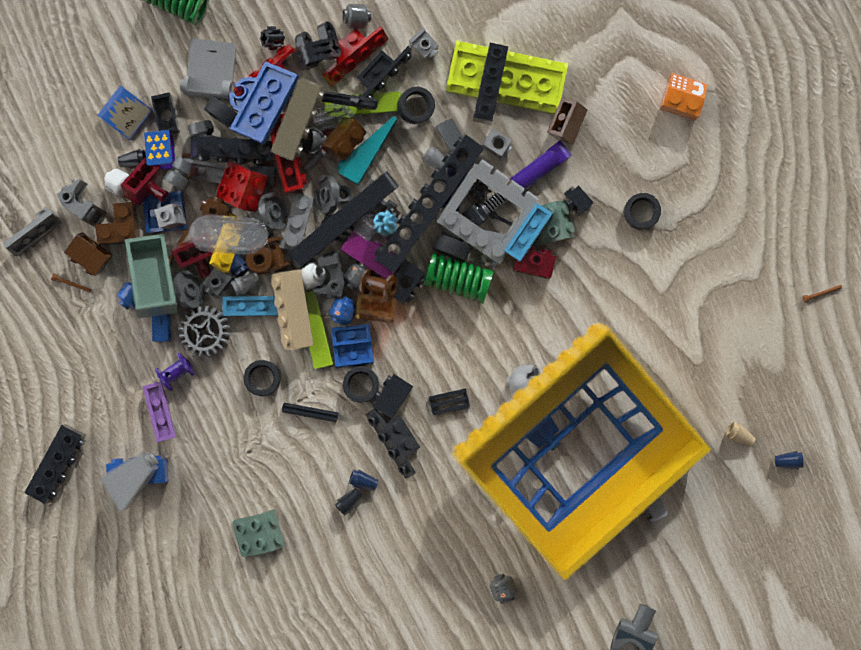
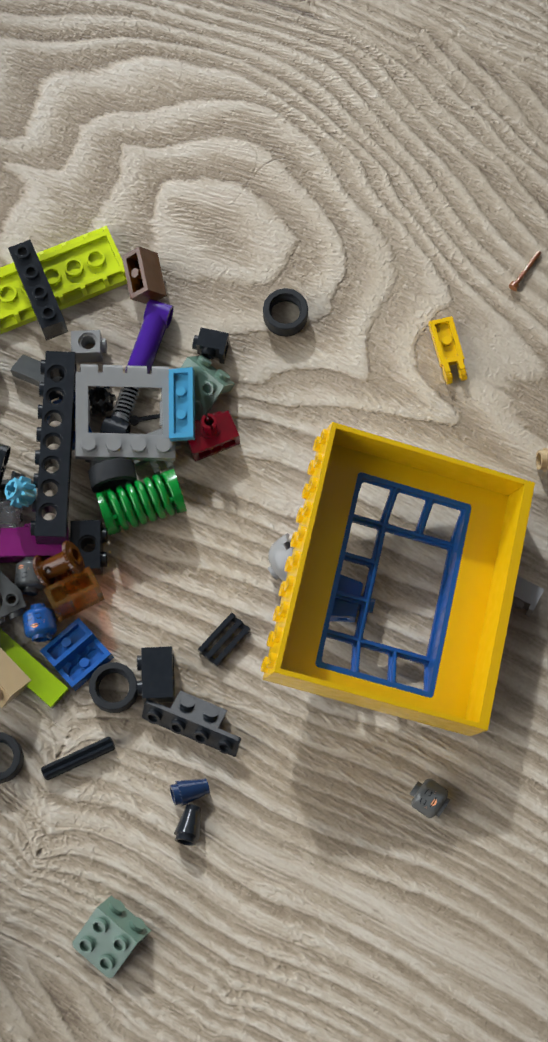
camera: 30 degrees left, 15 degrees down
(434, 158) = (29, 403): light grey cone -> none
(684, 97) = (246, 182): orange slope -> none
(729, 311) = (447, 347): none -> yellow hinge

